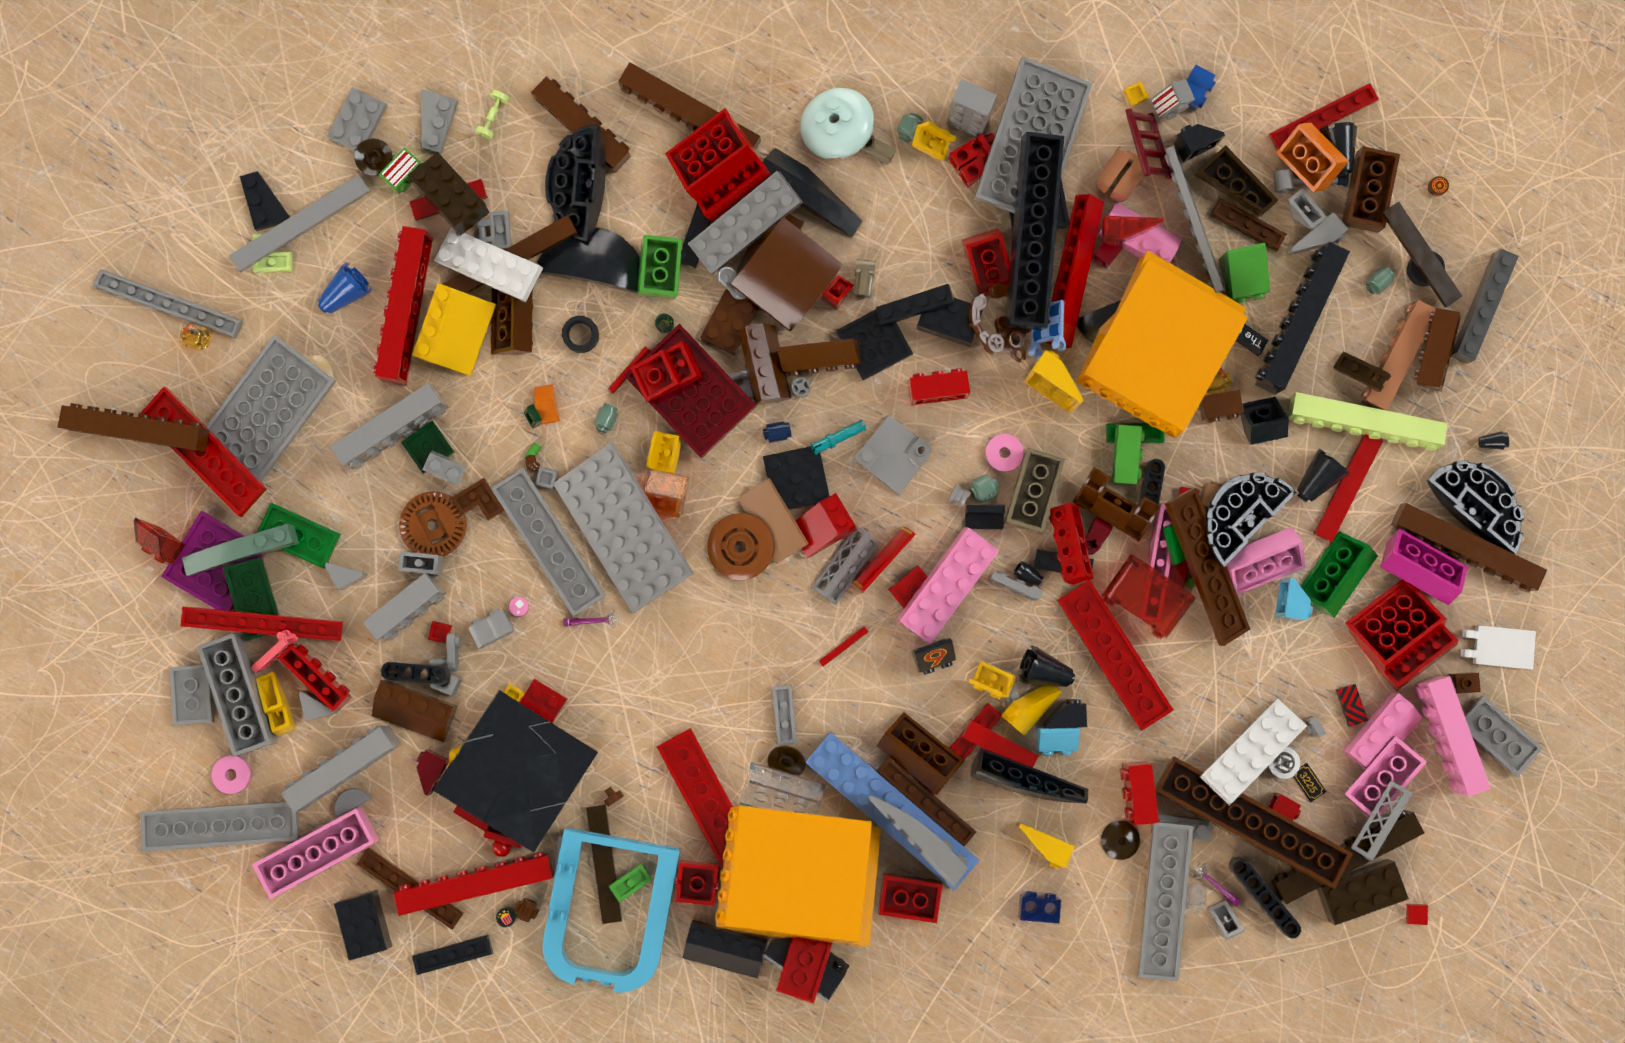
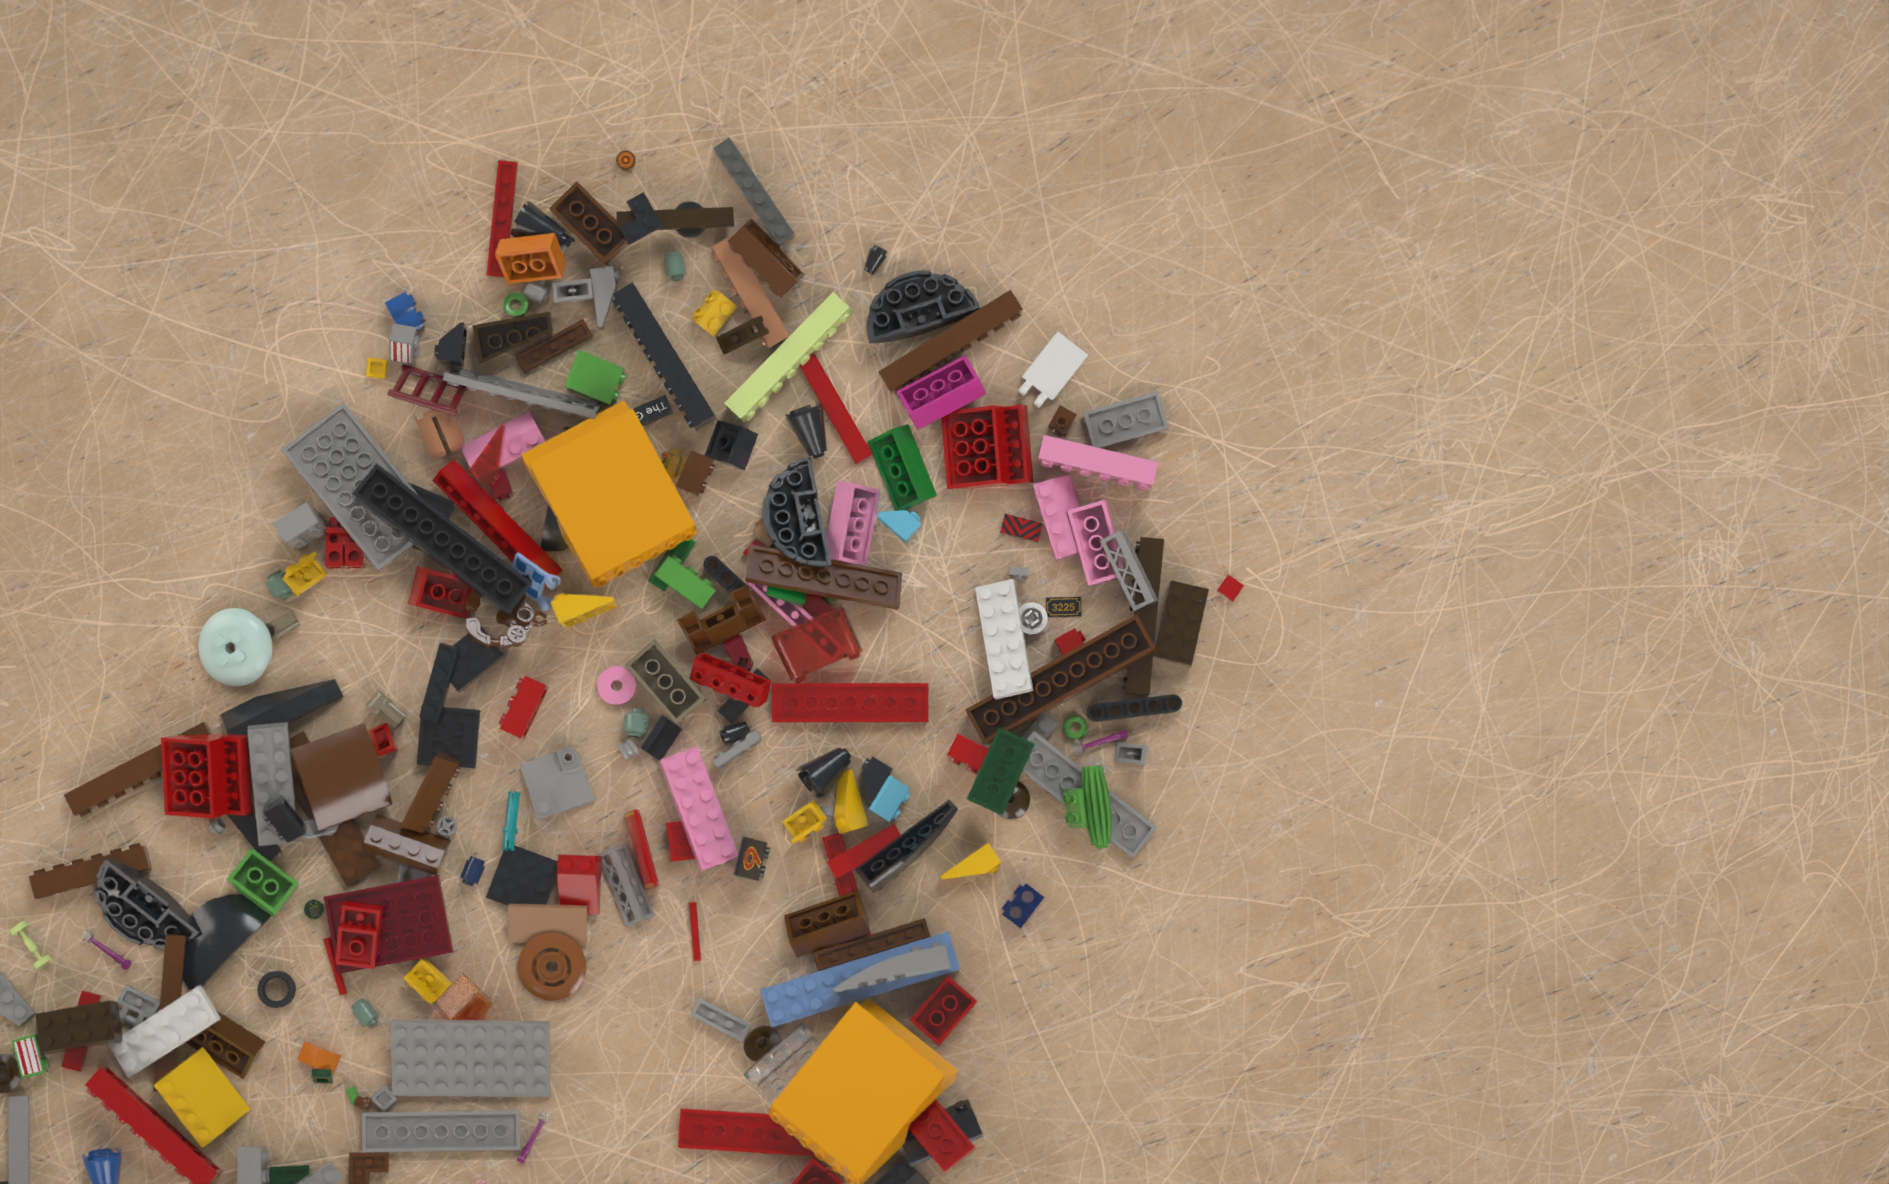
camera: 65 degrees left, 0 degrees up
(527, 156) = (88, 937): none -> magenta piece
(682, 201) = (216, 826): none -> light grey plate
(721, 249) = (284, 819): none -> black slope
(1144, 821) = (1000, 771): none -> dark green plate
(1161, 915) = (1090, 806): none -> bright green plate
(1207, 856) = (1066, 727): none -> bright green piece
(1266, 166) = (515, 296): none -> bright green piece
(1362, 336) = (713, 312): none -> yellow bracket
(1406, 229) = (645, 220): none -> black plate

